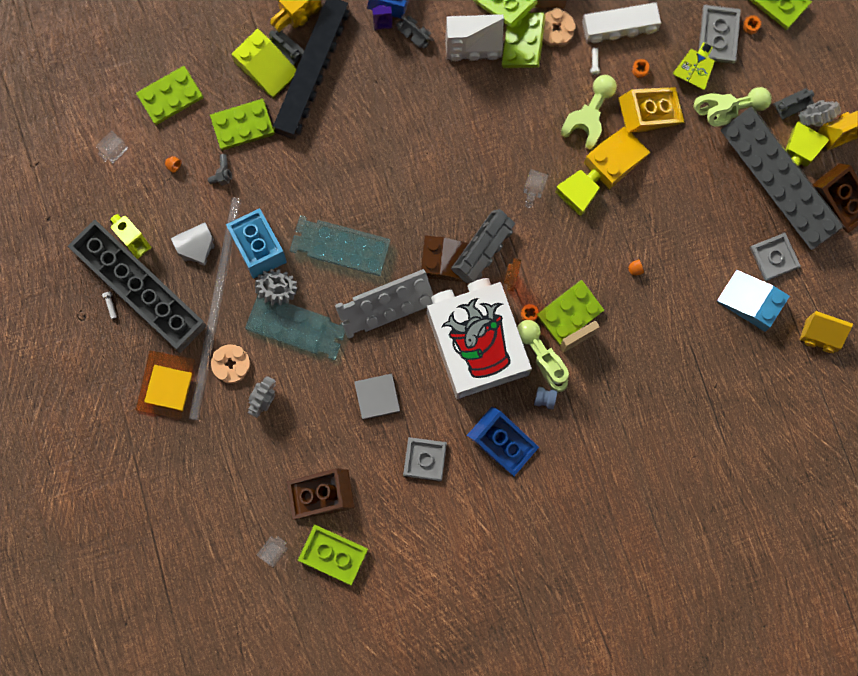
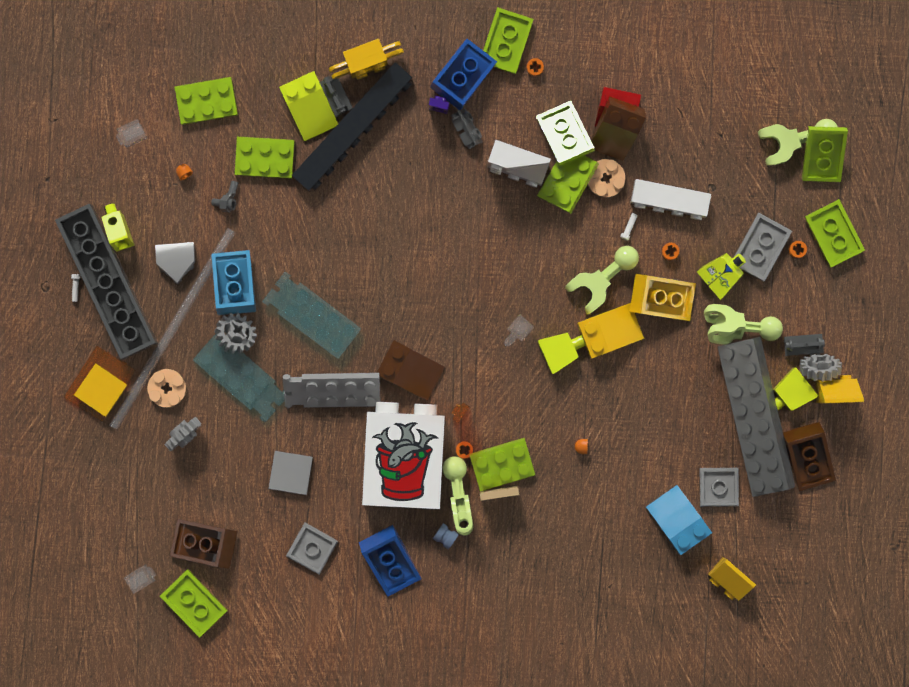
camera: 25 degrees right, 10 degrees up
(483, 246) = (445, 371): dark grey brick -> none

